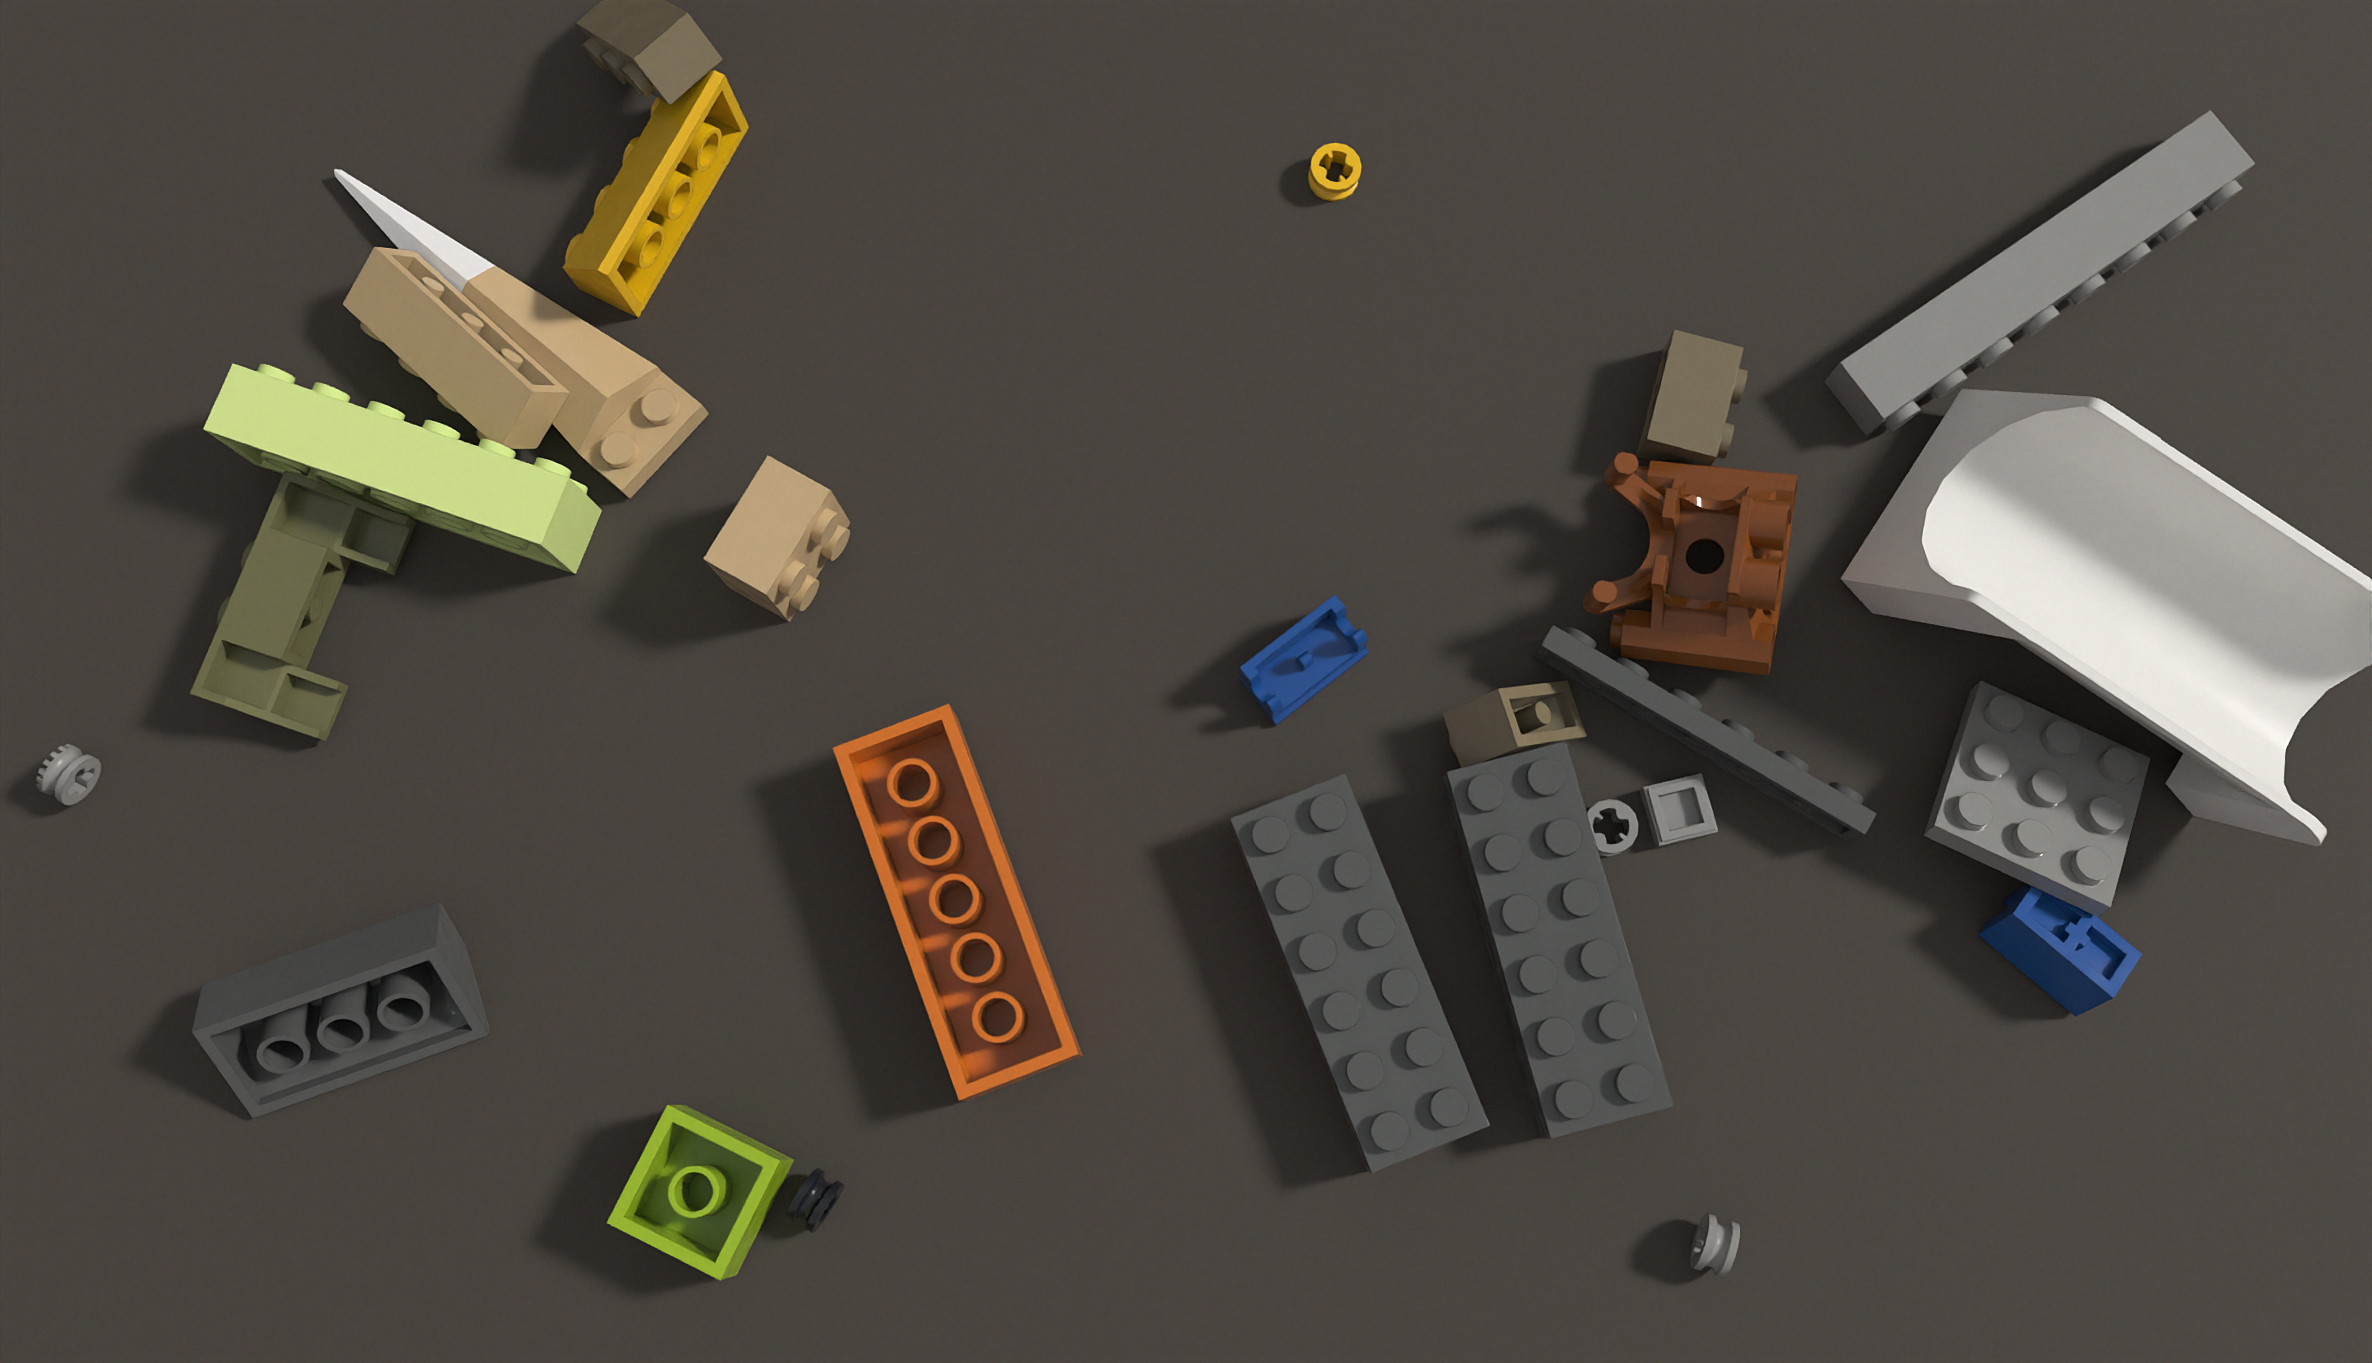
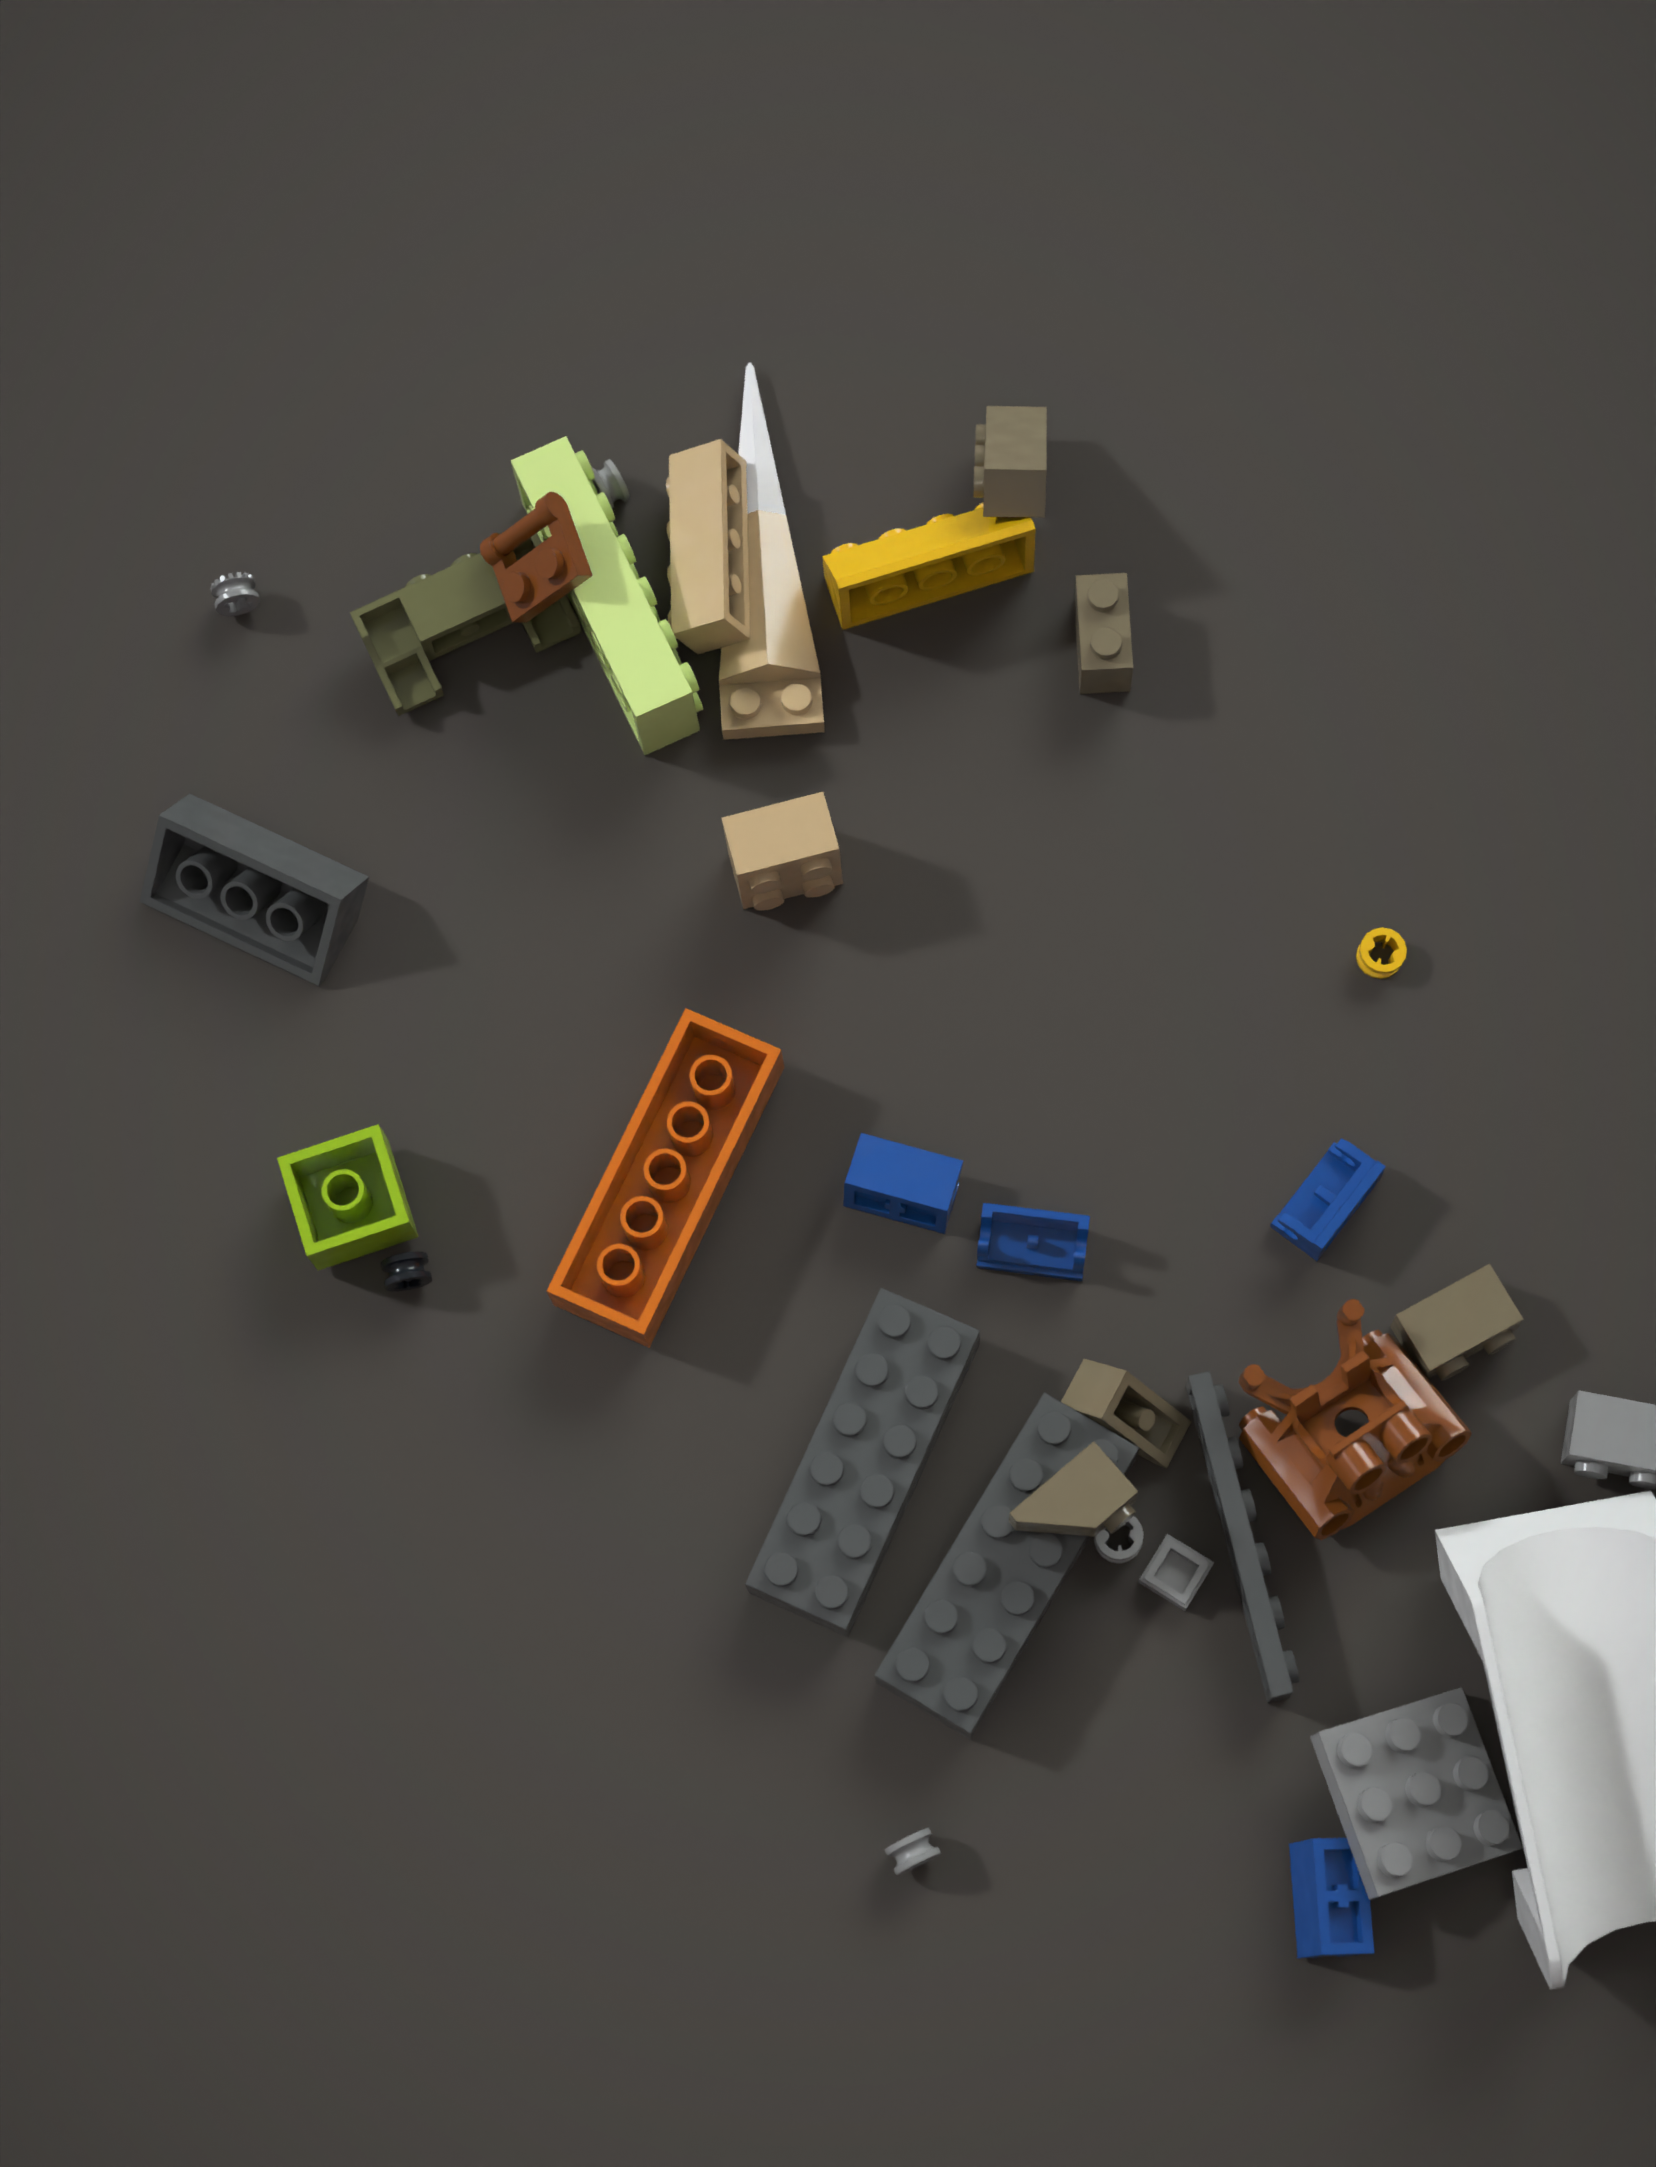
camera: 50 degrees right, 5 degrees down
(312, 370) = (611, 483): none -> light grey bush
(332, 494) = (545, 571): none -> dark orange plate
(860, 119) = (1103, 633): none -> dark tan brick
(1152, 715) = (902, 1183): none -> blue hinge
(1494, 400) = (1328, 1198): none -> blue hinge
(1573, 827) = (1079, 1498): none -> dark tan slope

